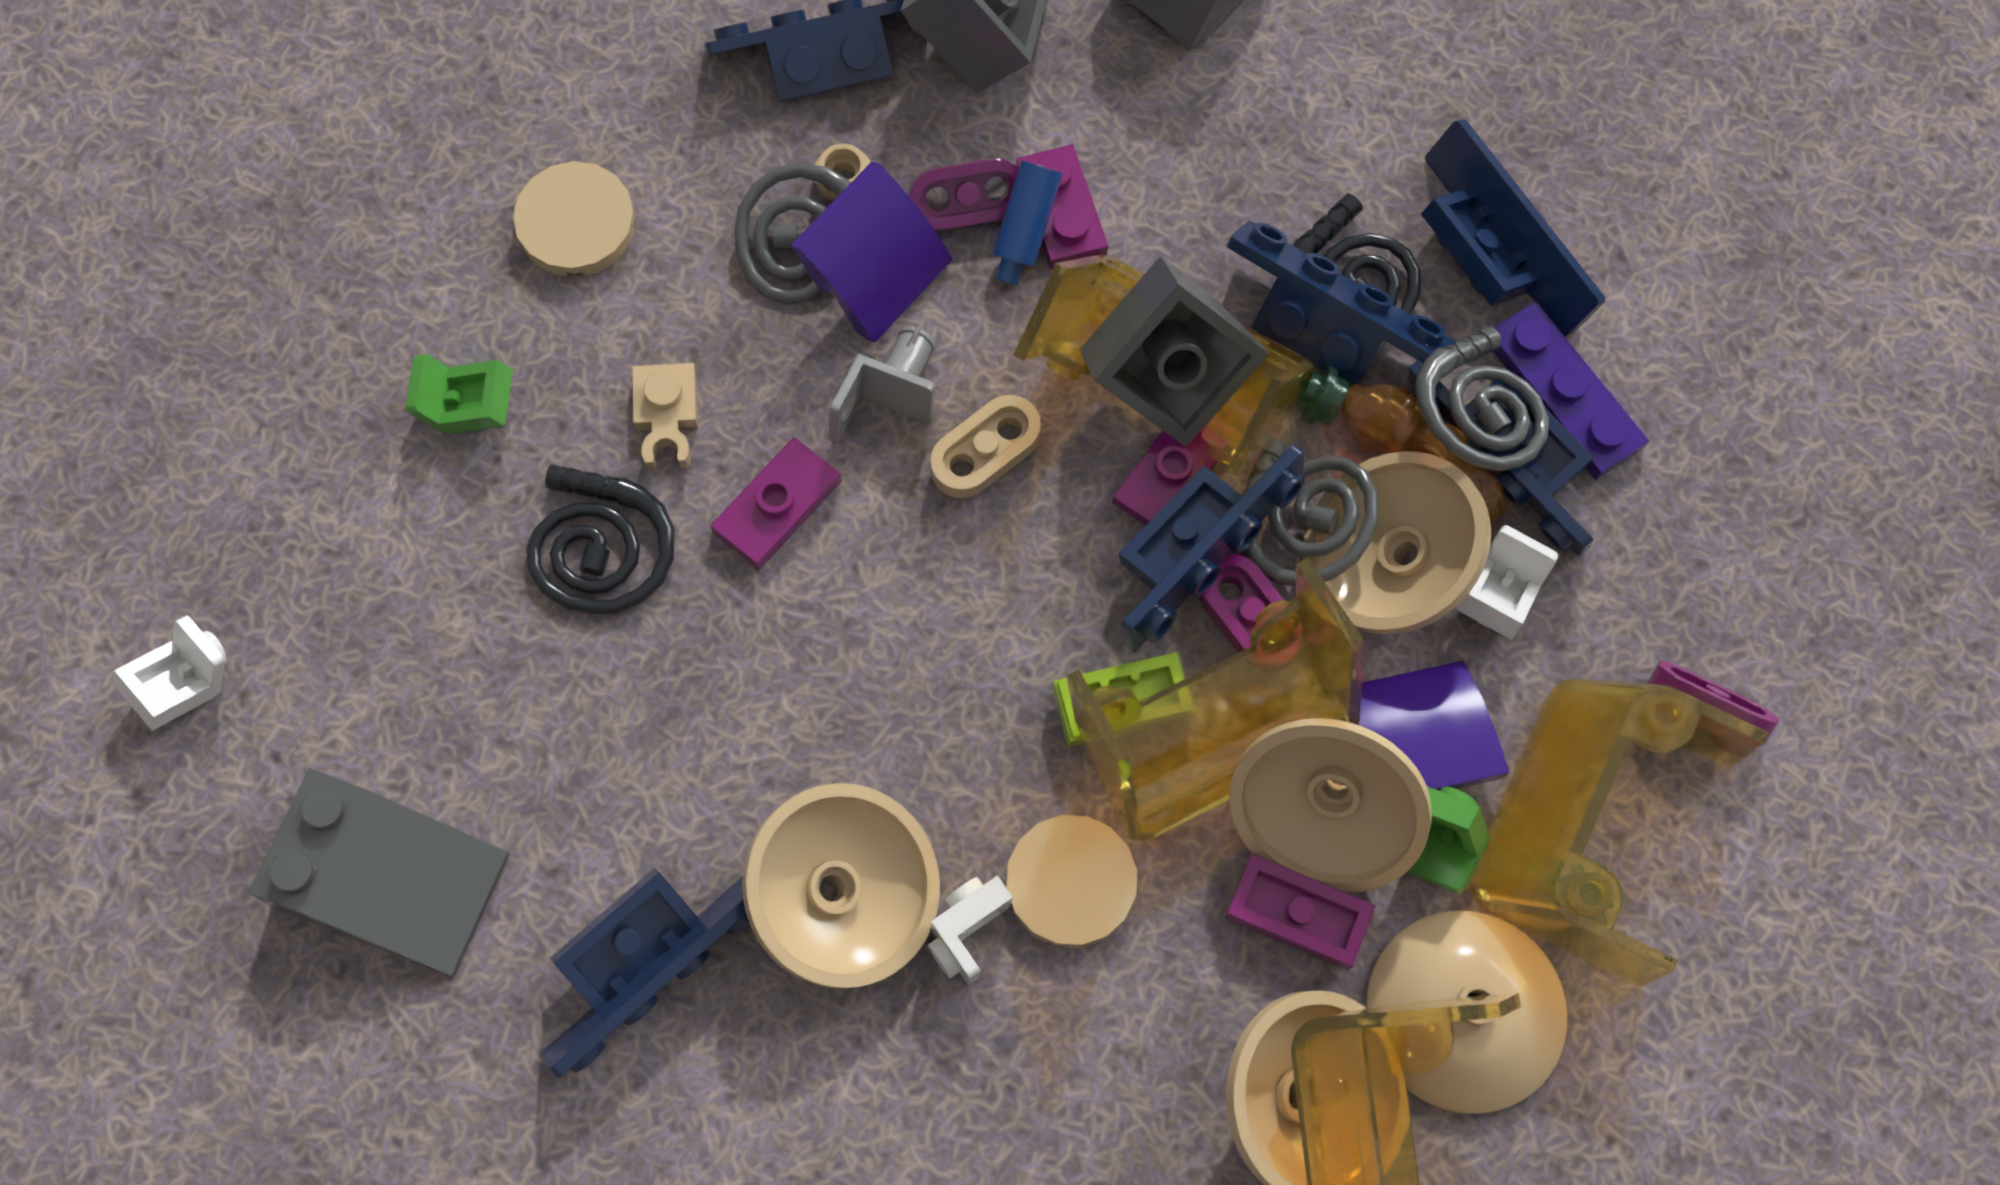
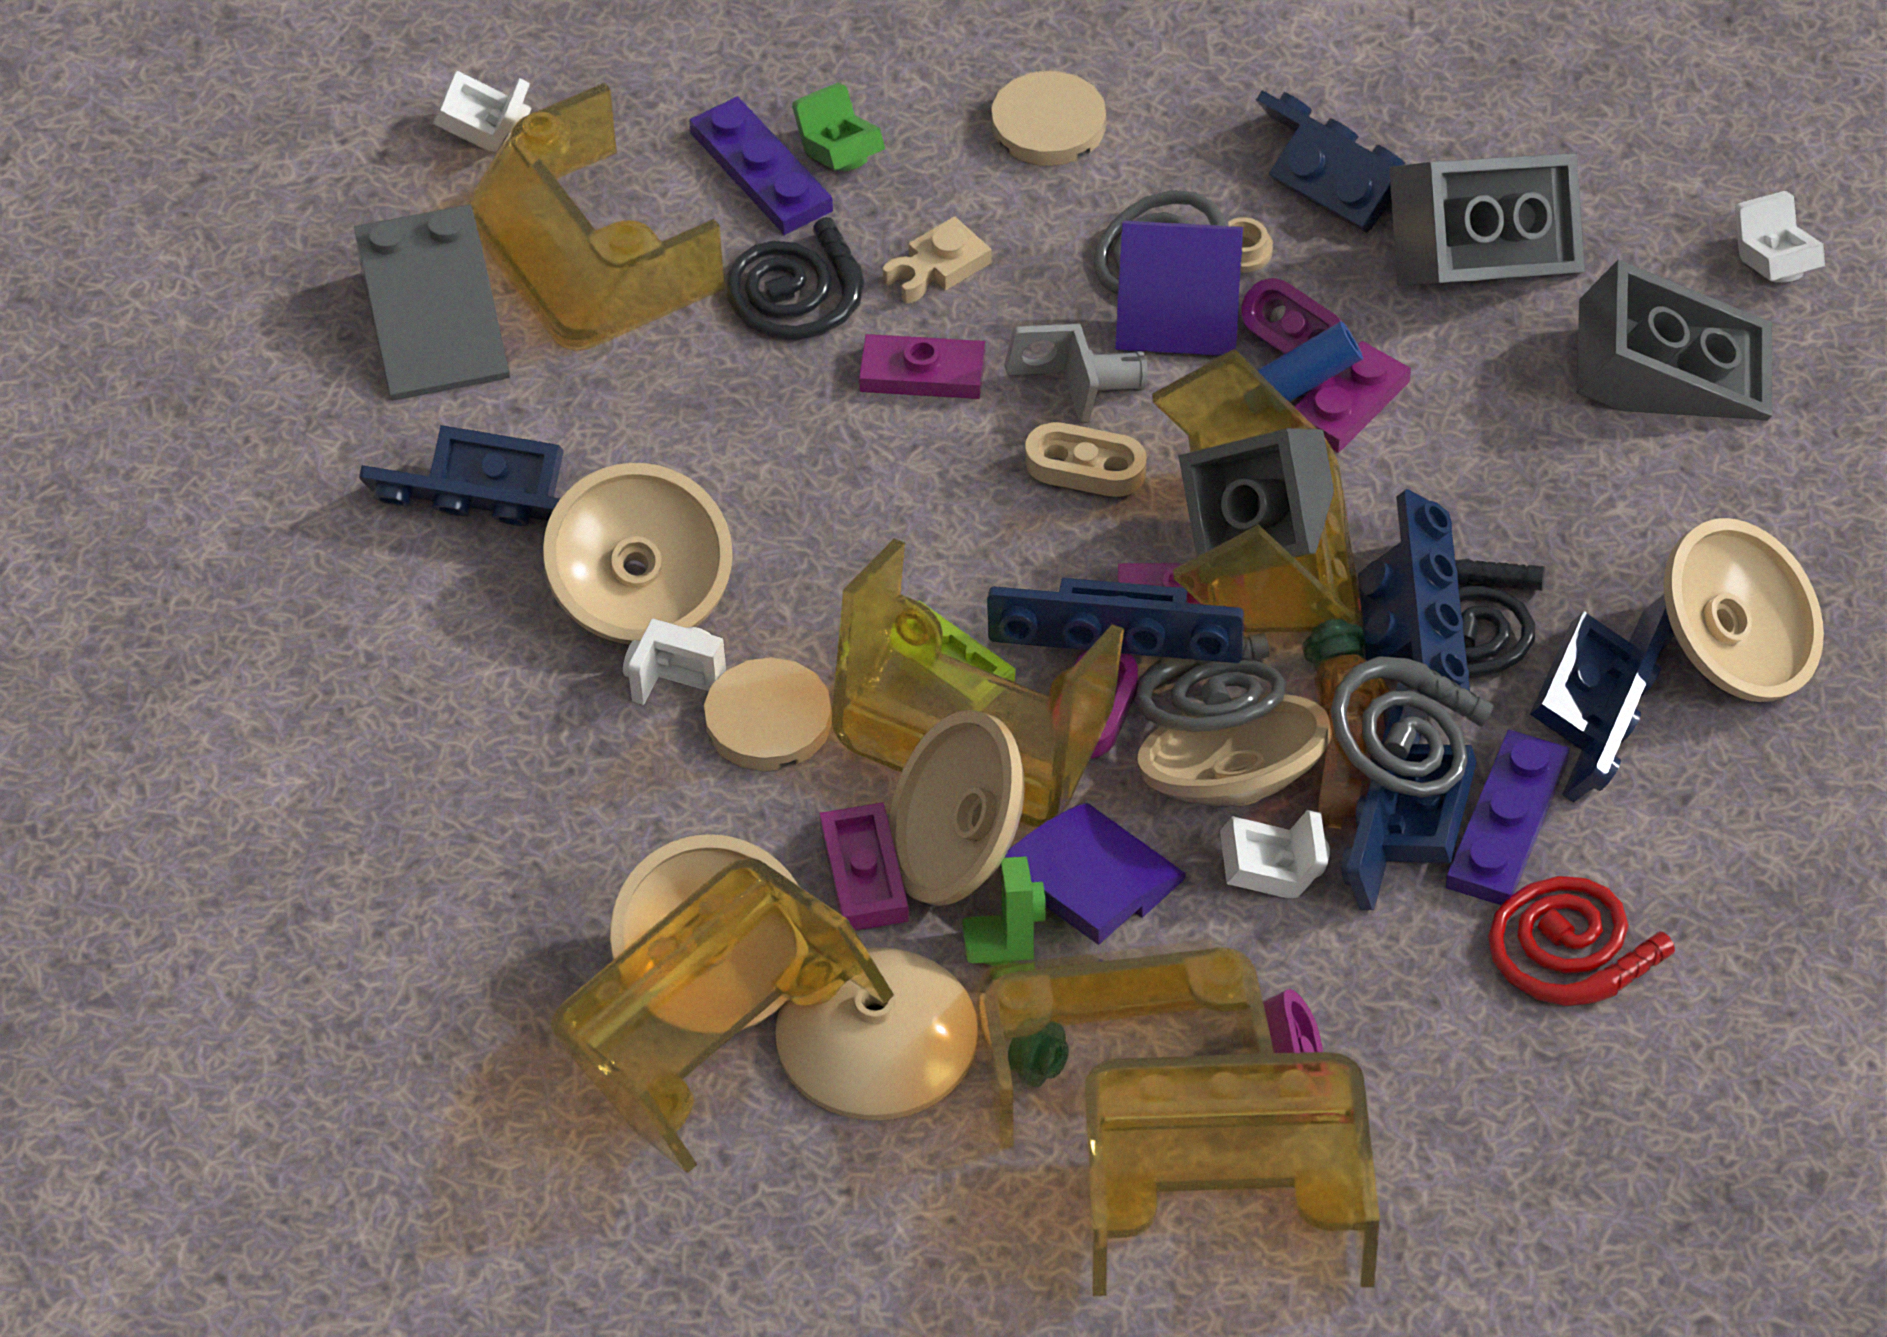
camera: 60 degrees right, 20 degrees down
(399, 729) = (573, 277): none -> clear yellow windscreen
(434, 480) = (761, 165): none -> dark purple plate
(1510, 94) = (1743, 610): none -> tan dish
(1692, 430) = (1560, 931): none -> red piece
(1832, 743) = (1229, 1127): none -> clear yellow windscreen

